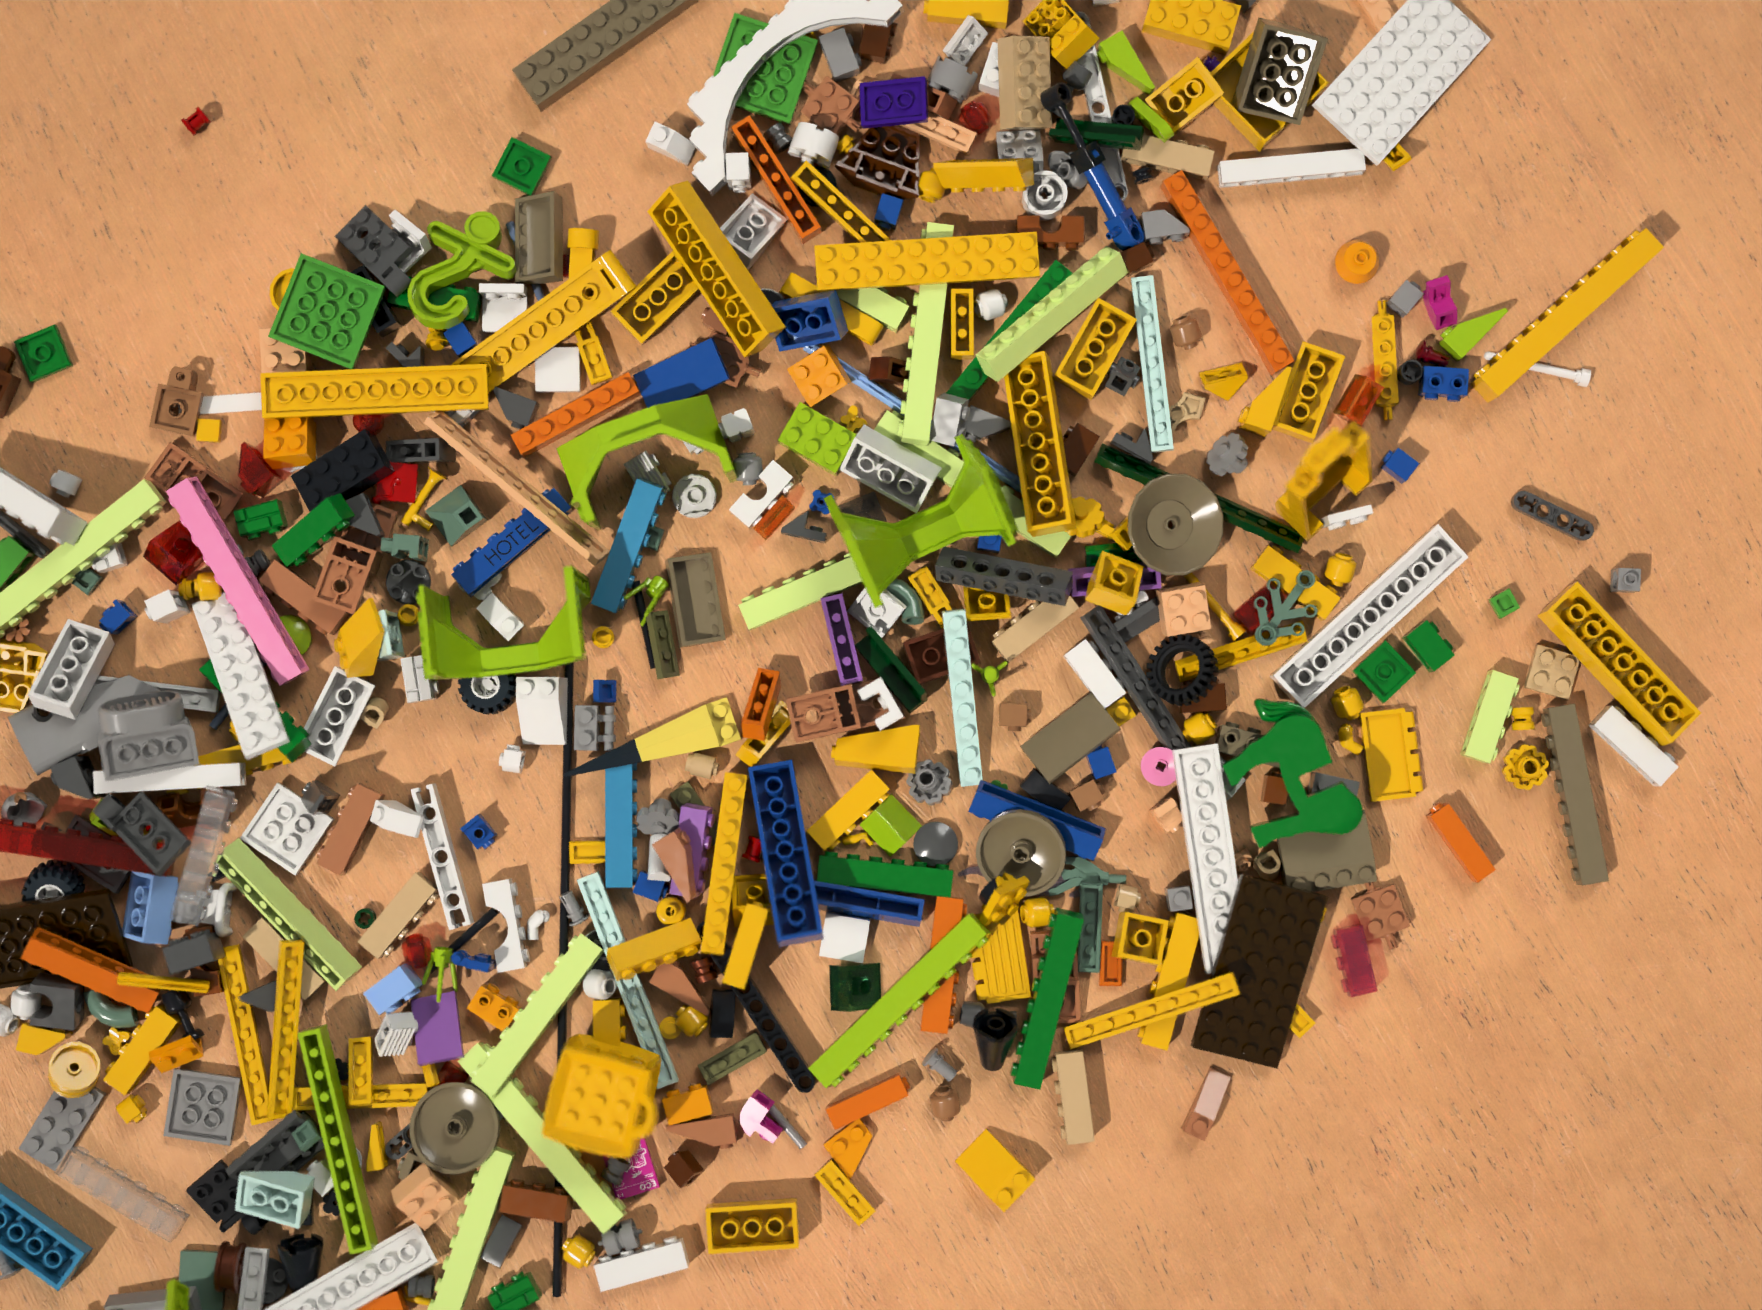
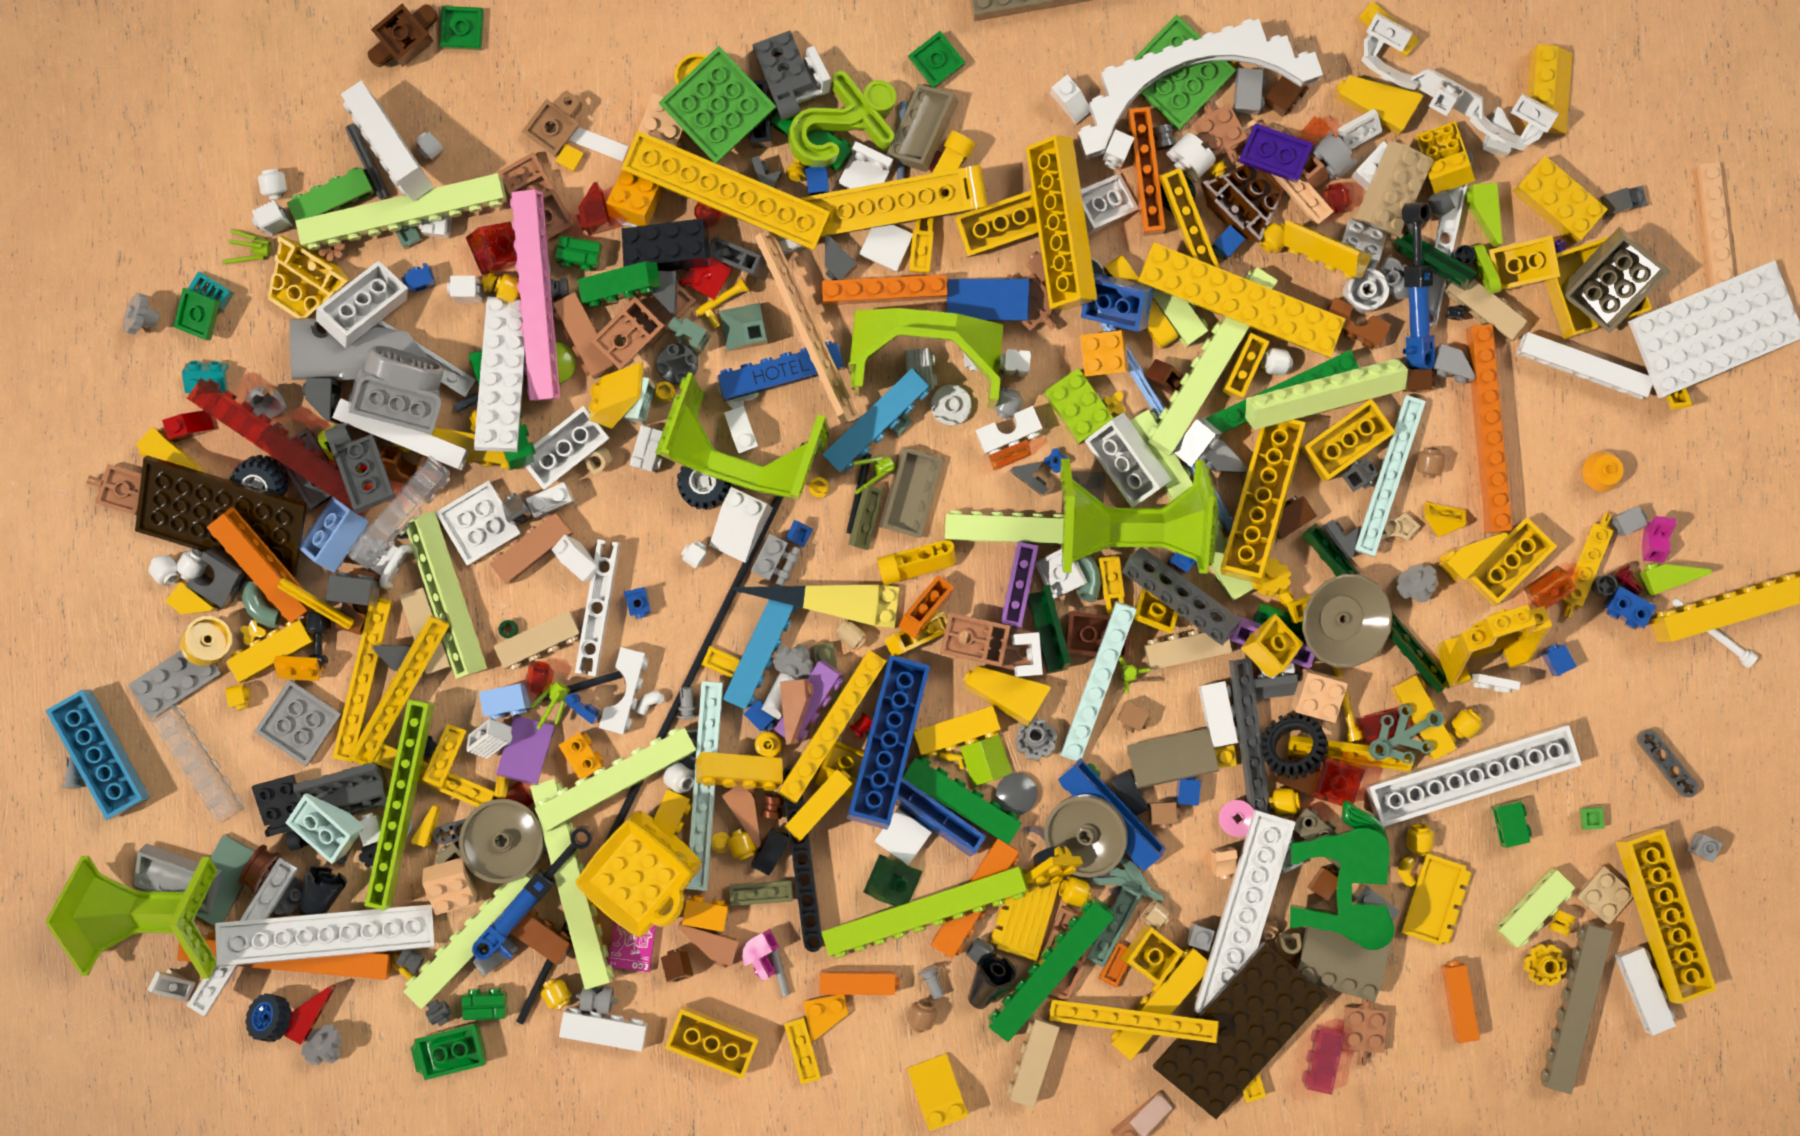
camera: 15 degrees right, 0 degrees up
(306, 1135) = (374, 788): sand green tile -> none
(346, 773) = (550, 500): none -> white brick
(505, 1174) = (525, 901): none -> blue piece
(615, 1170) = (619, 940): dark grey wheel -> none
(732, 664) = (916, 561): none -> yellow beam
(921, 63) = (1314, 130): none -> clear orange brick
(1241, 684) = (1338, 781): none -> clear red slope
(1384, 671) = (1463, 827): green plate -> none

